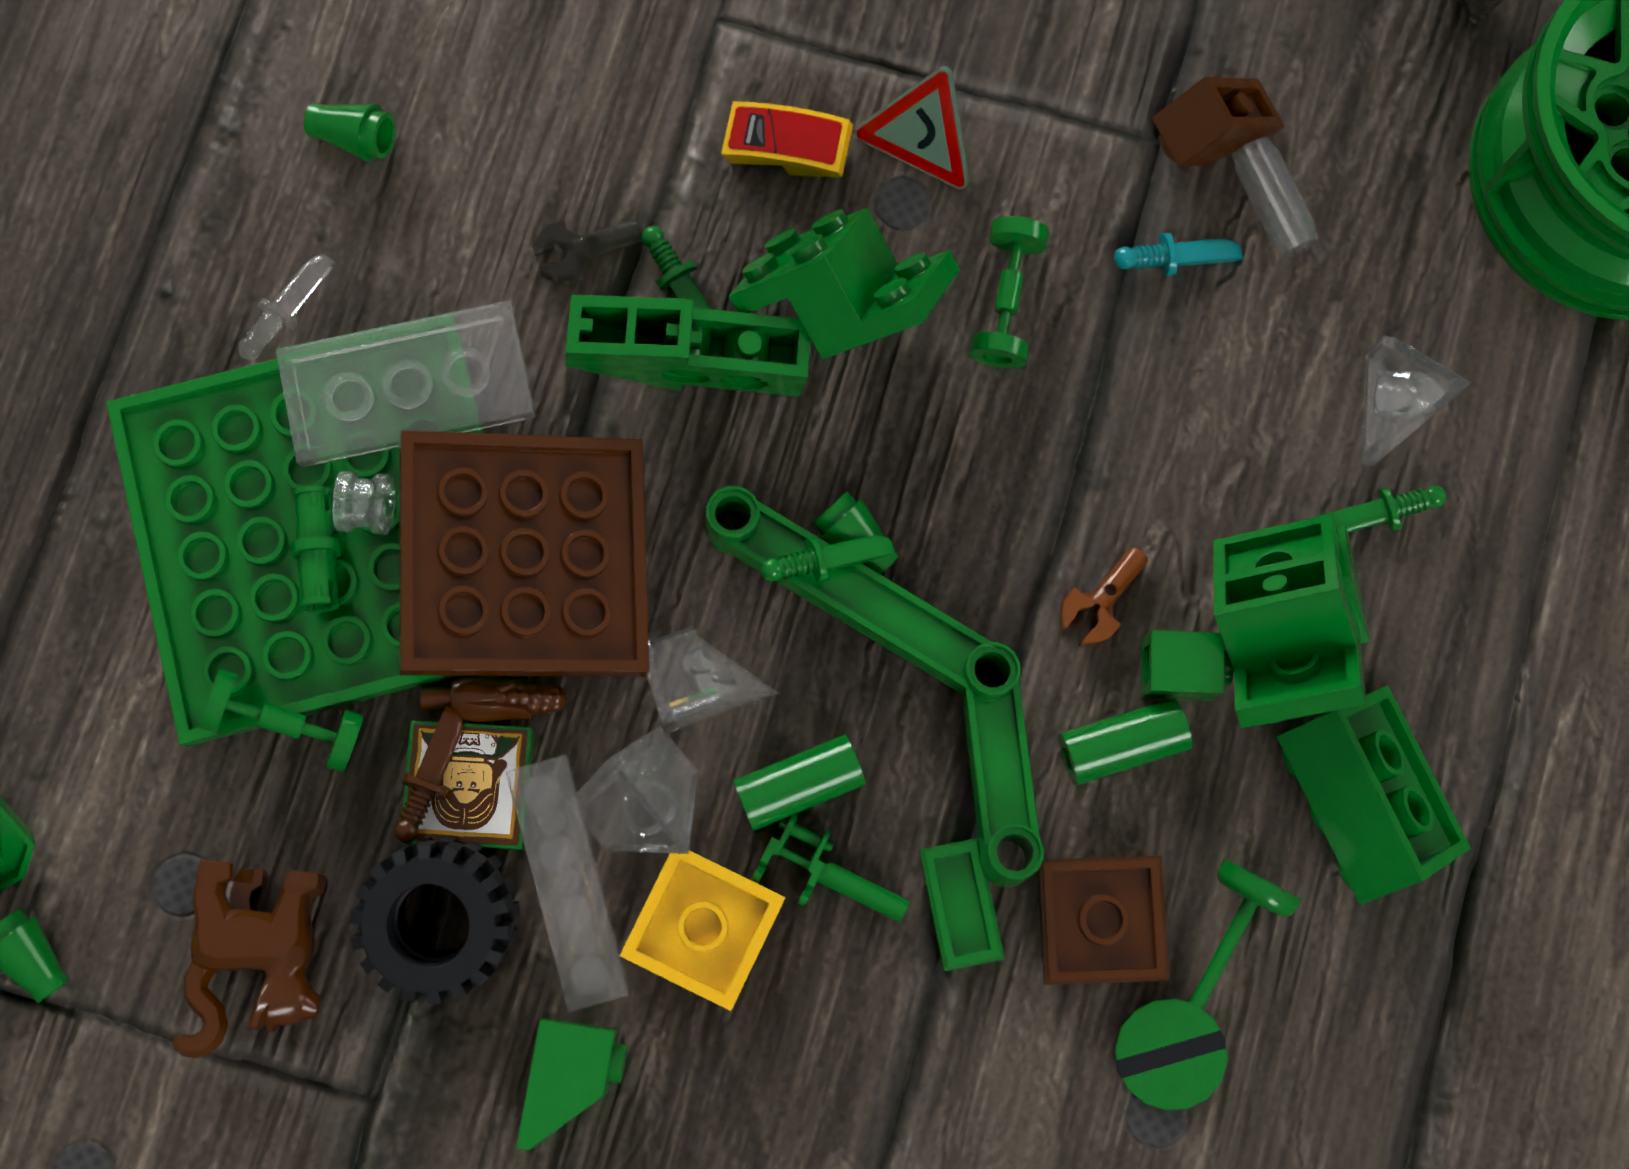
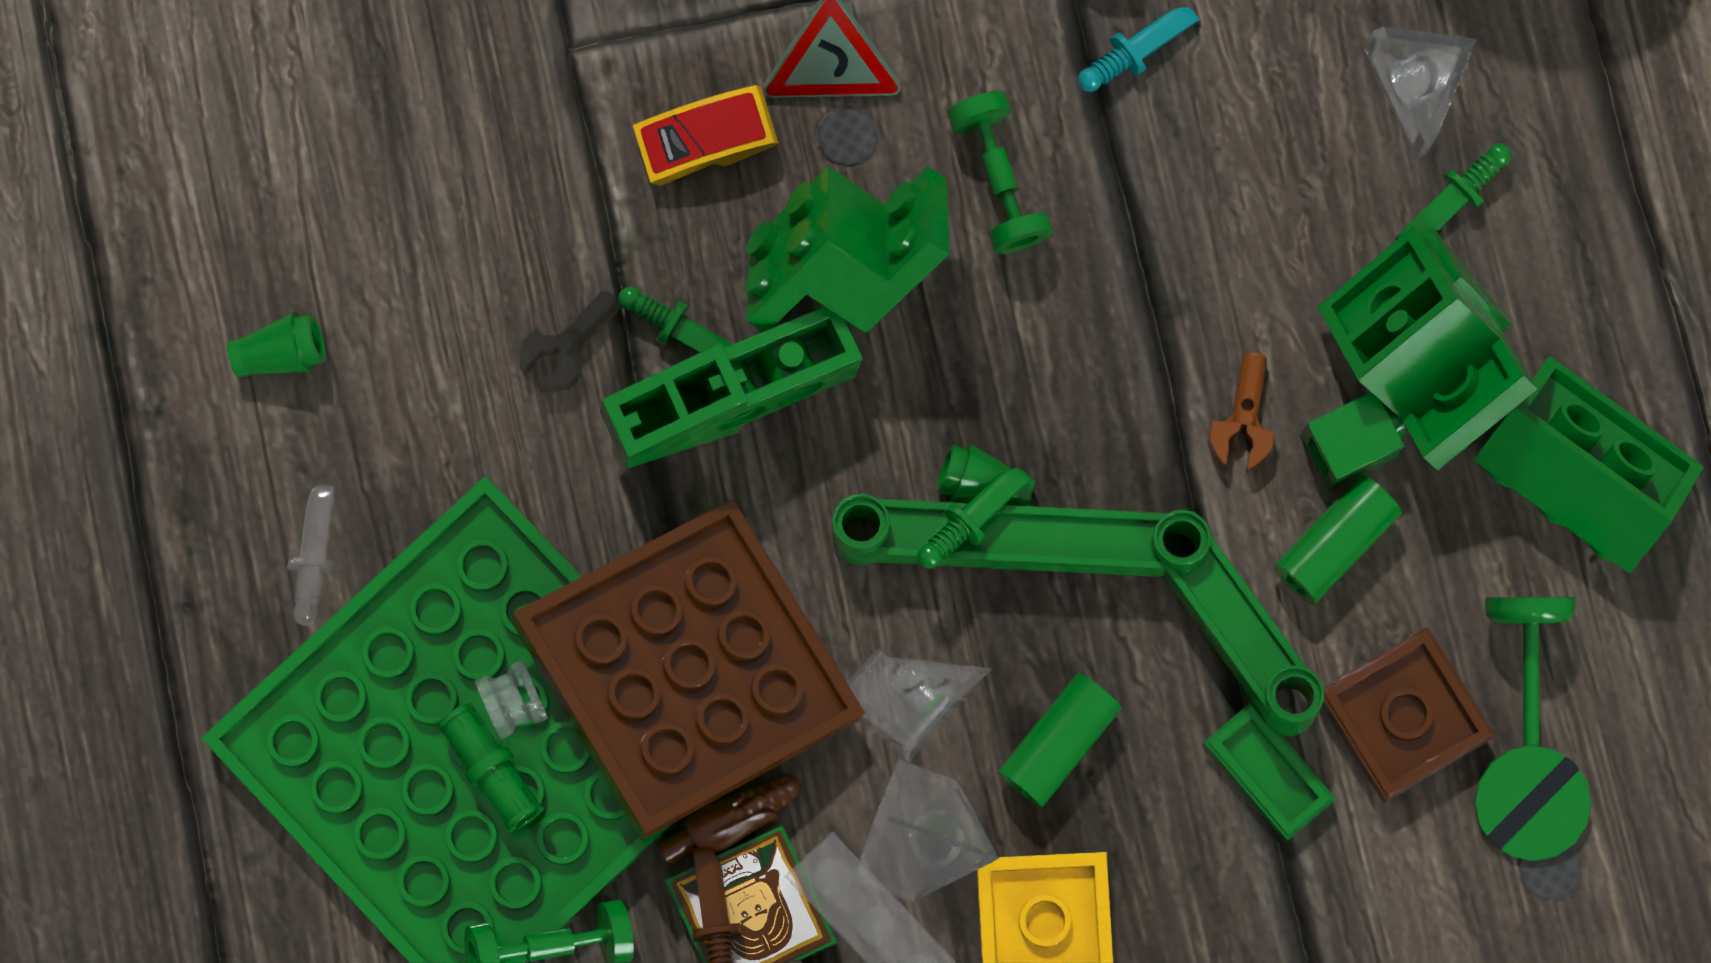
camera: 25 degrees left, 0 degrees up
(414, 375) = (479, 564): clear tile -> none
(830, 874) = (1134, 809): green piece -> none

